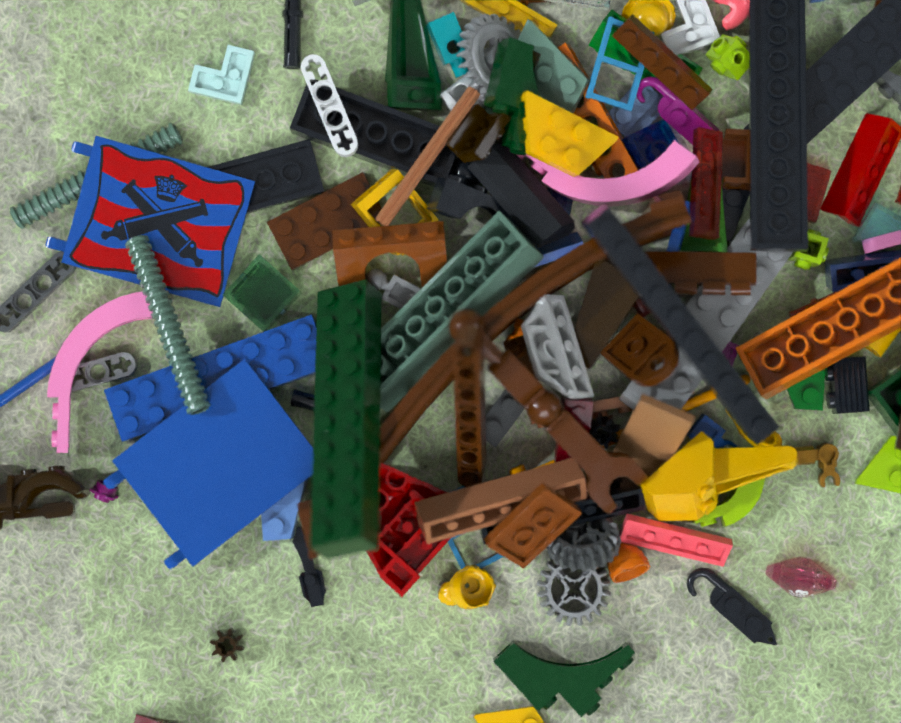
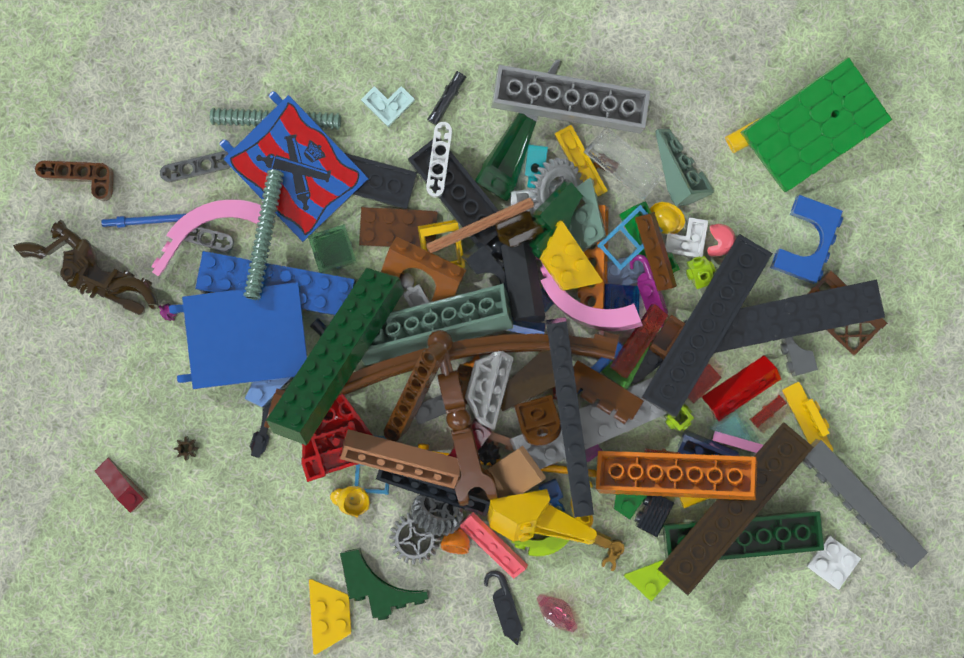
camera: 25 degrees right, 0 degrees up
(532, 525) = (410, 485): dark orange plate -> none

